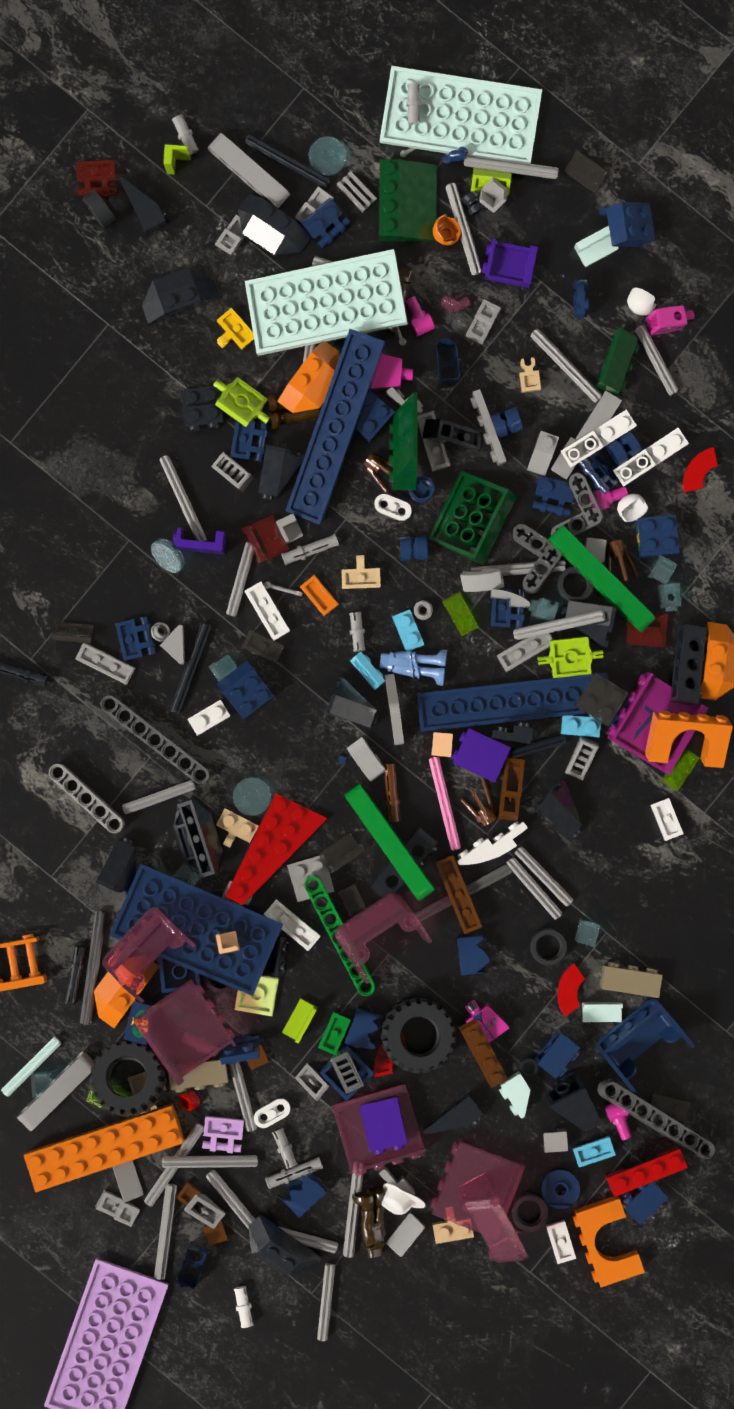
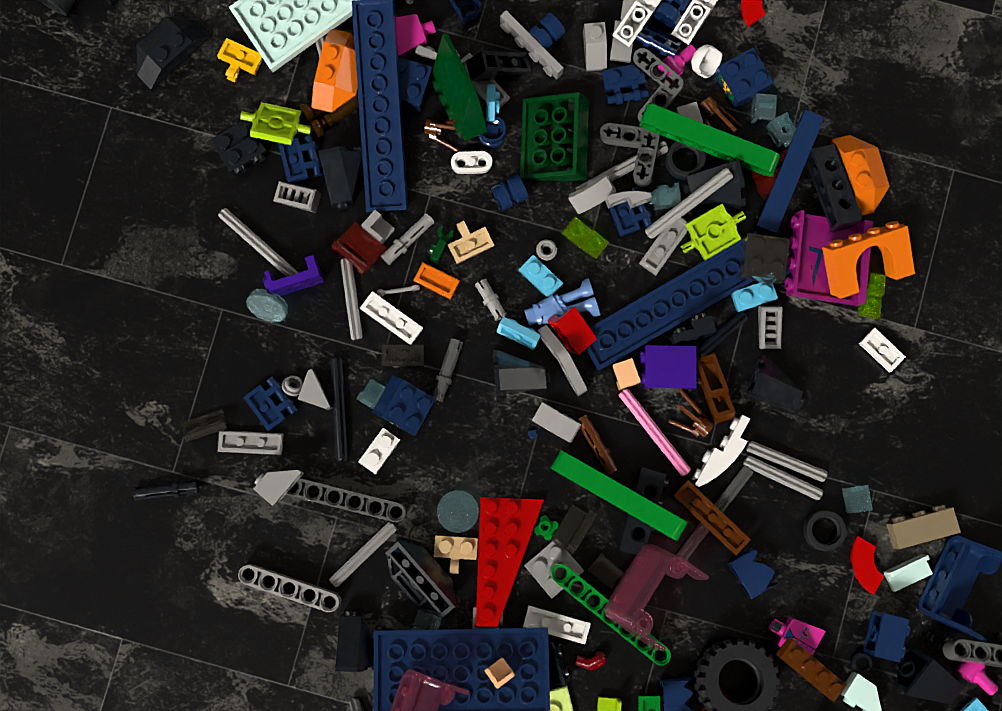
camera: 30 degrees left, 5 degrees down
(112, 709) = (276, 484): none -> light grey slope
(292, 677) = (447, 369): none -> dark grey pin
(308, 969) = (593, 663): none -> dark red arm
(317, 848) = (552, 528): none -> green plate
(331, 570) = (437, 250): none -> dark green plate
(413, 689) = (572, 330): none -> red panel
(431, 466) = (492, 102): none -> medium azure plate
(658, 634) = (790, 171): none -> dark blue tile

